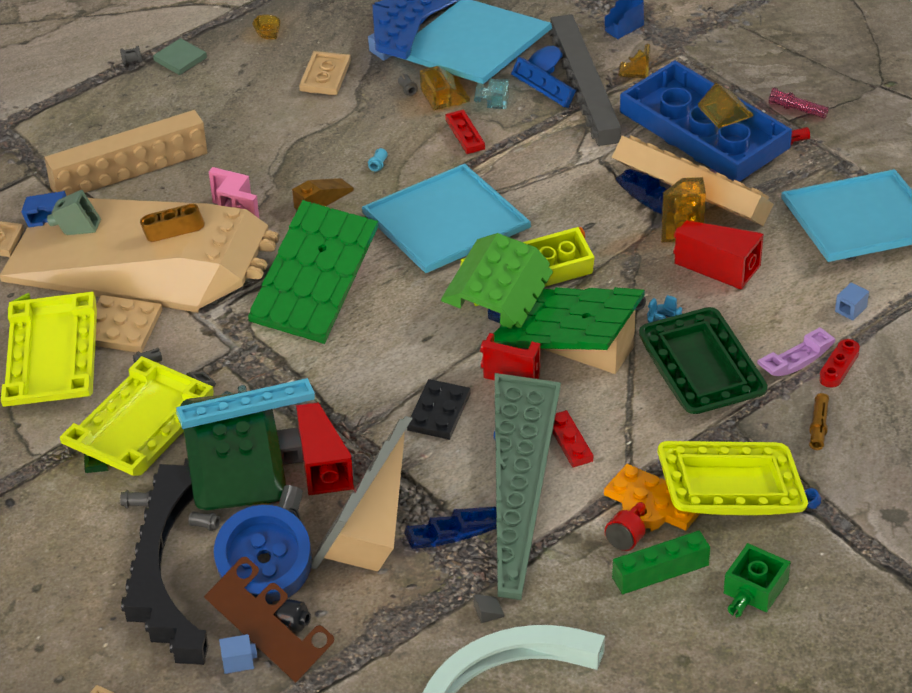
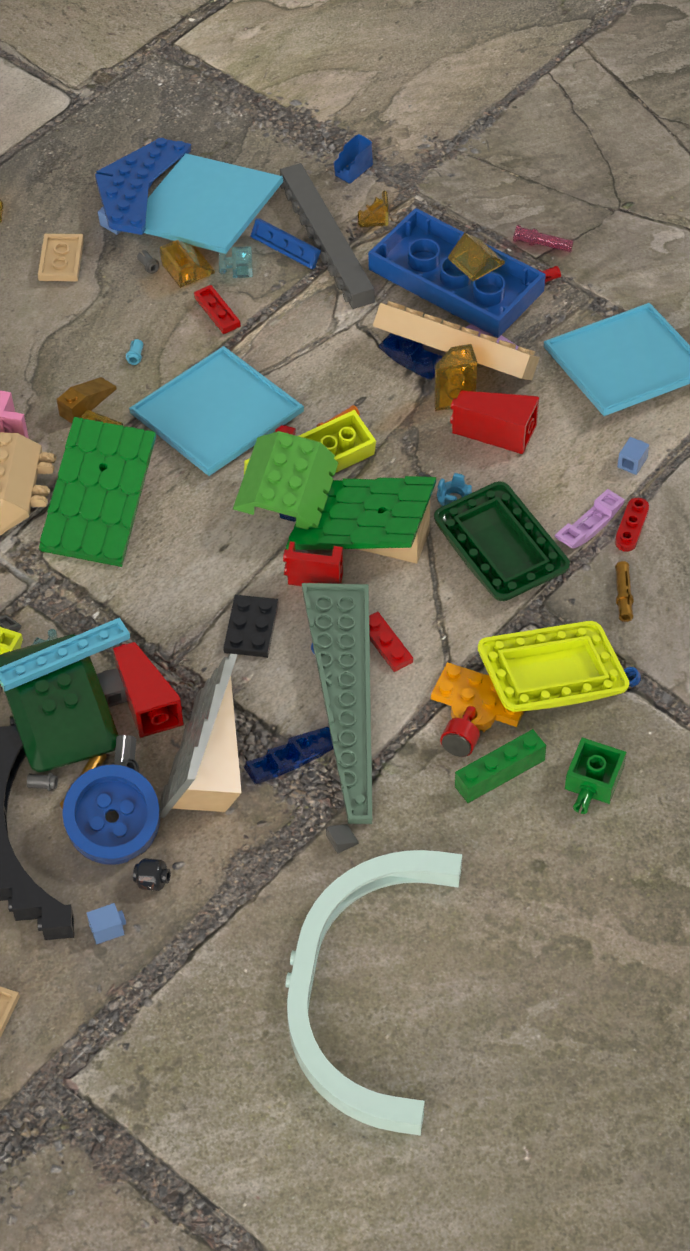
camera: 10 degrees left, 10 degrees up
(256, 618) = (119, 886): reddish brown piece -> none
(546, 58) = (283, 216): blue dish -> none

